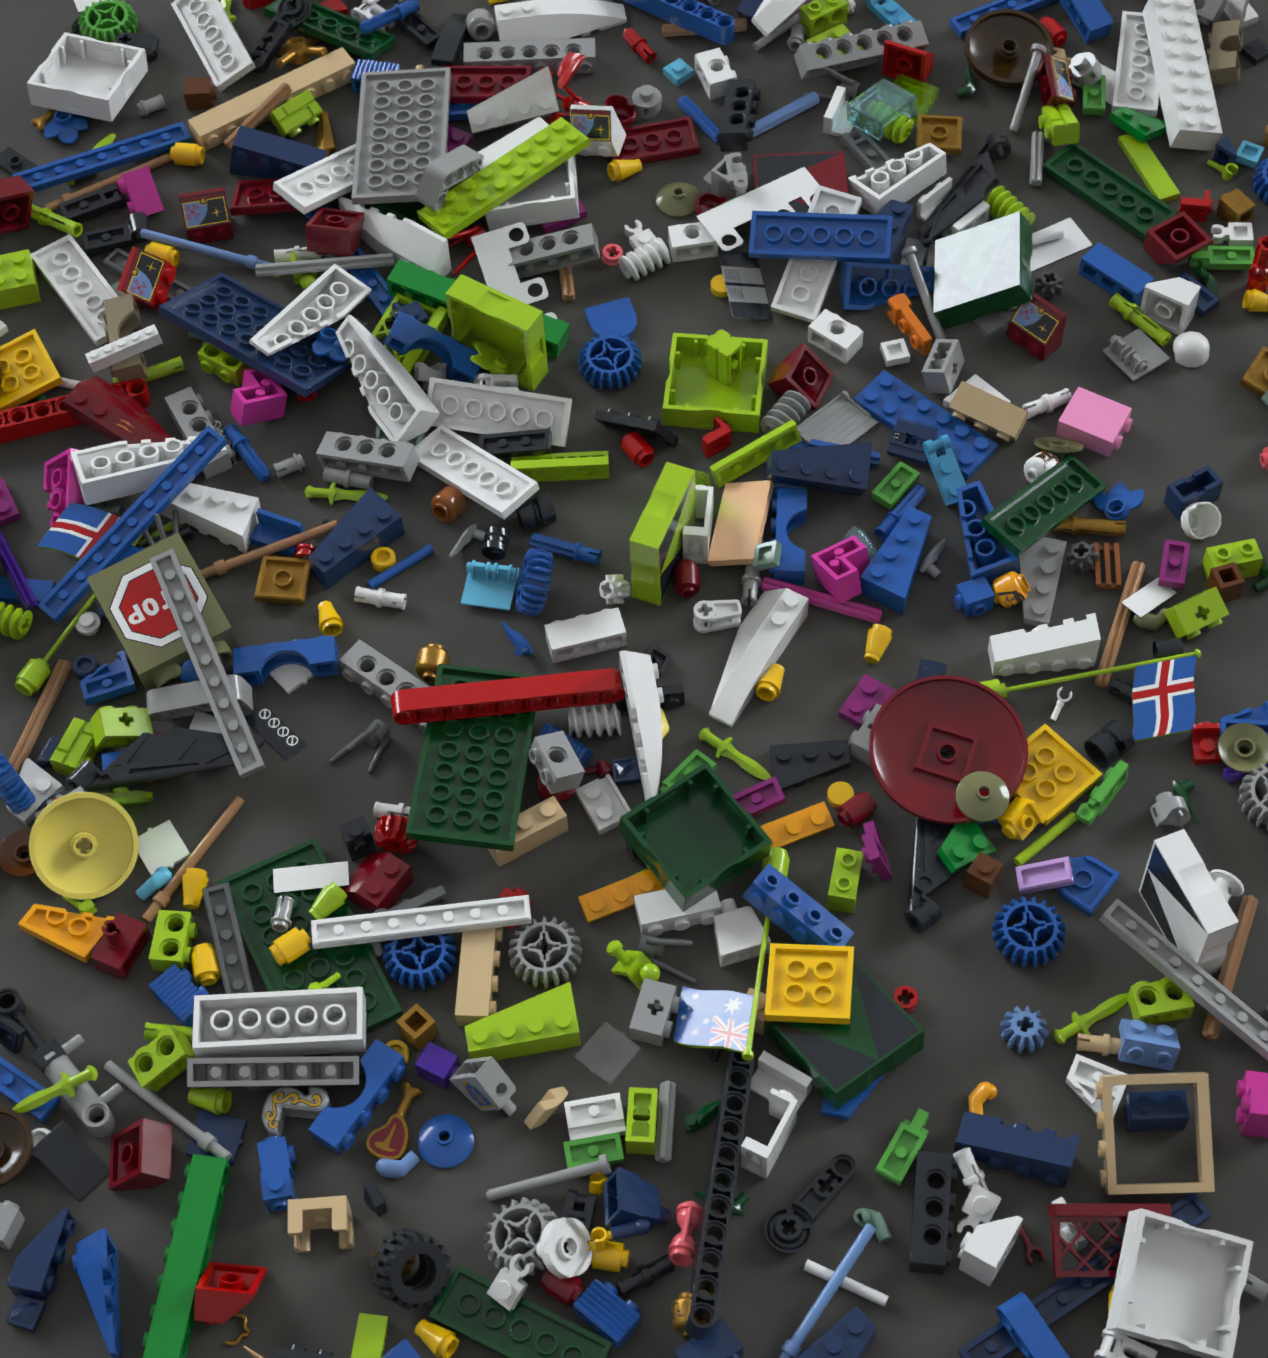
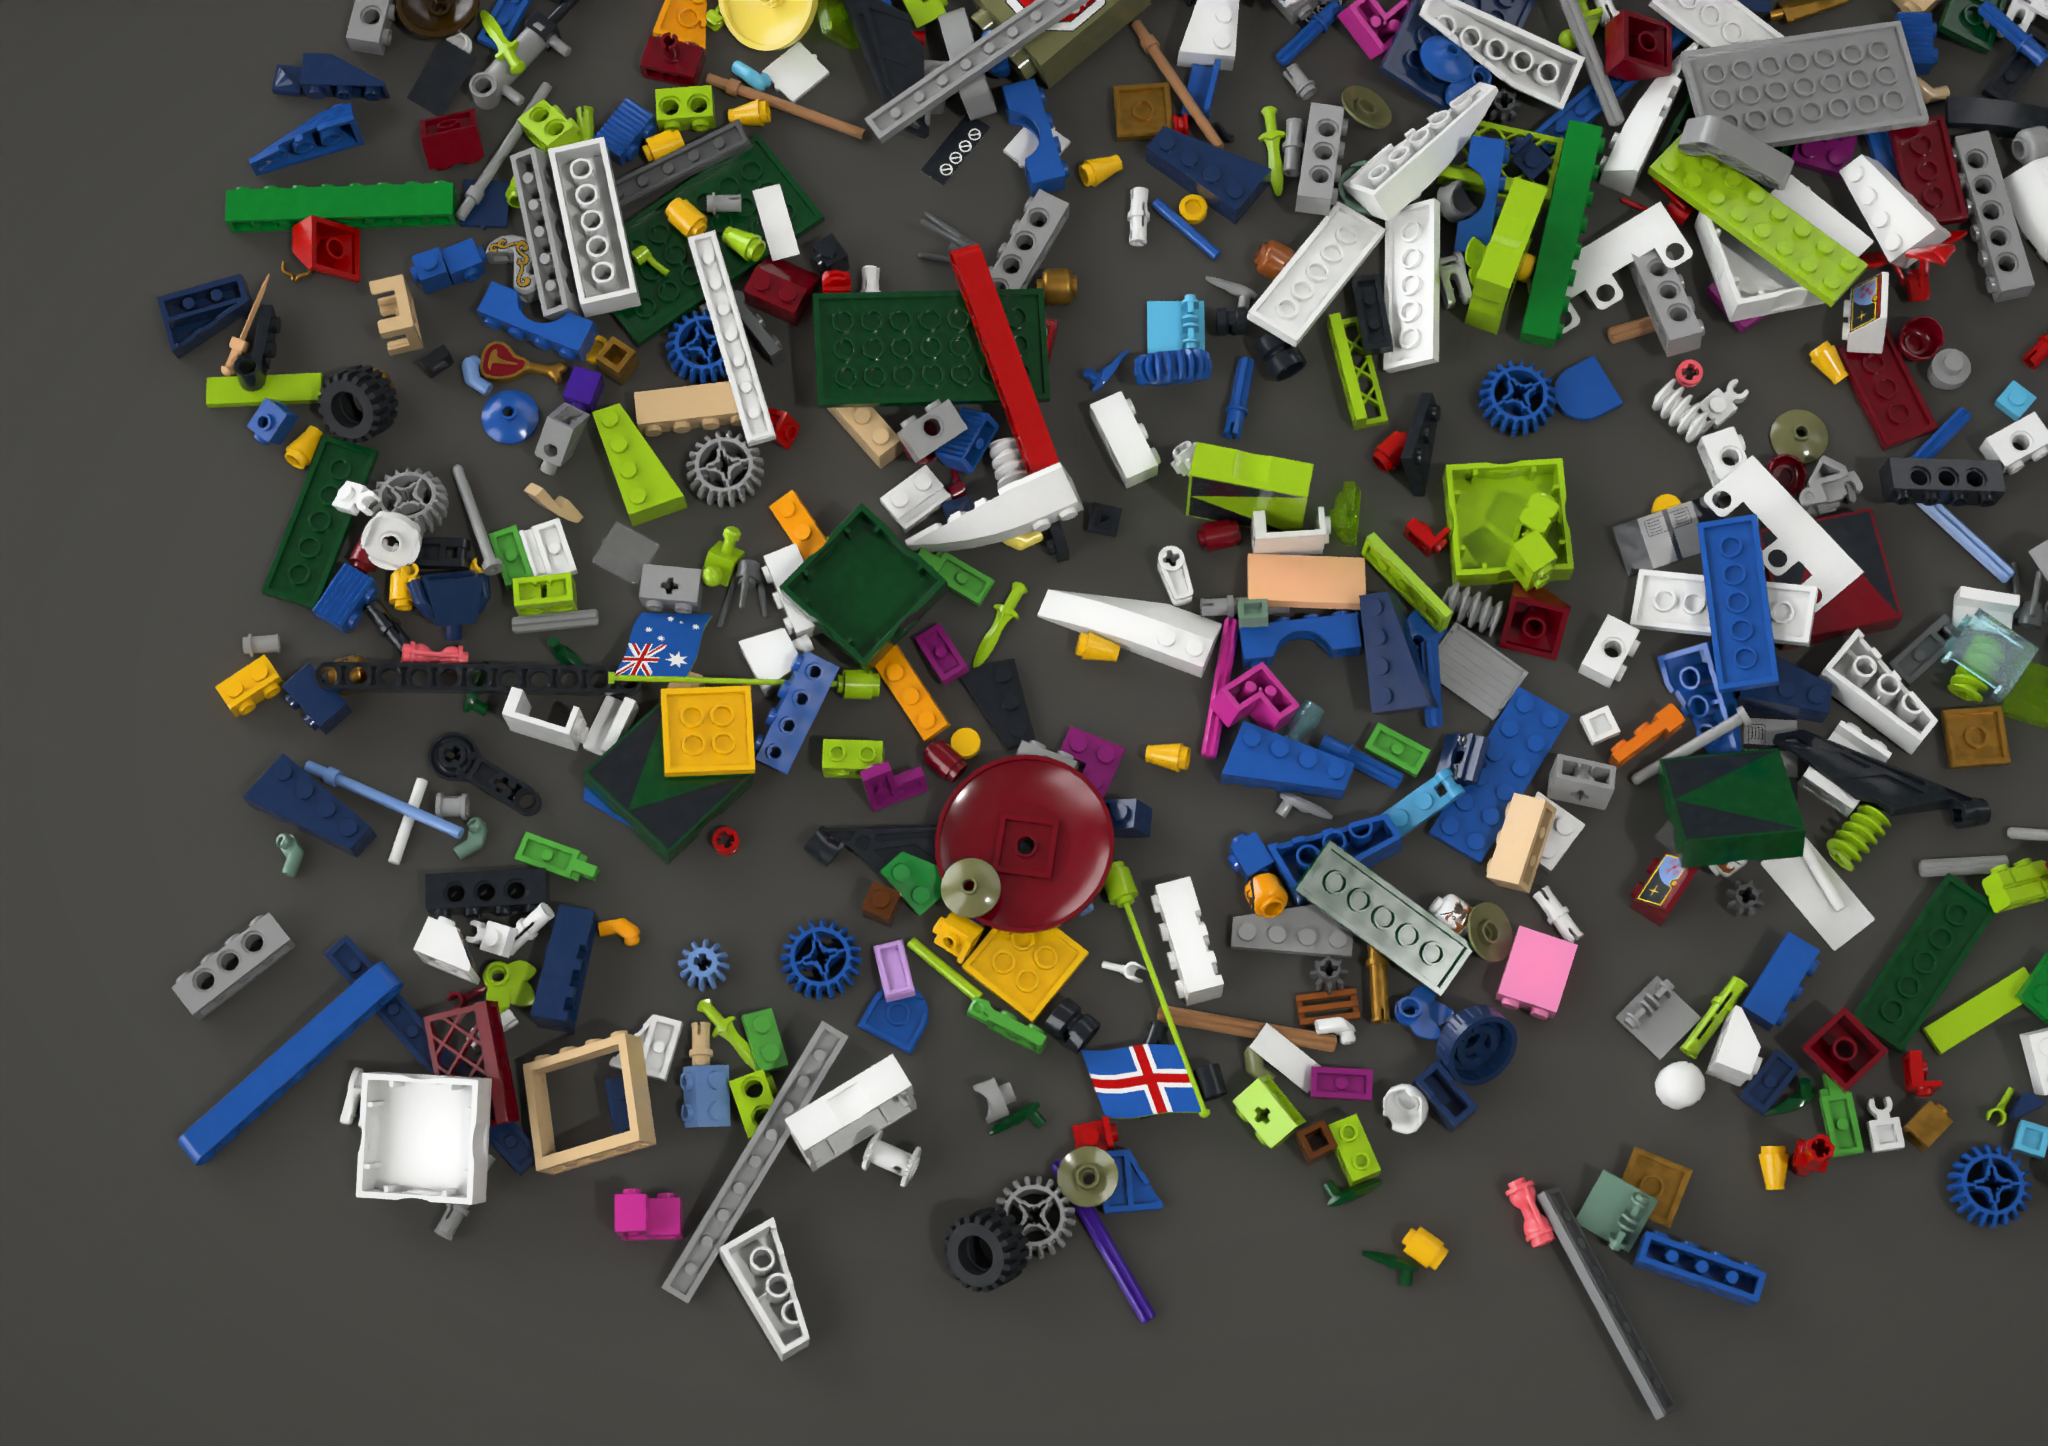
camera: 80 degrees right, 15 degrees up
(309, 349) = (1446, 59): none -> blue dish
(328, 421) = (1366, 107): none -> olive dish
(764, 352) = (1532, 561): none -> lime brick
(839, 1235) = (452, 806): none -> light grey bush
(1025, 1203) = (513, 987): none -> lime plate
(1098, 990) = (764, 1041): none -> bright green plate
(1126, 558) = (1338, 1026): none -> white arm
(1152, 462) = (1466, 1035): none -> dark blue piece
(1232, 959) = (828, 1183): medium nougat axle -> none

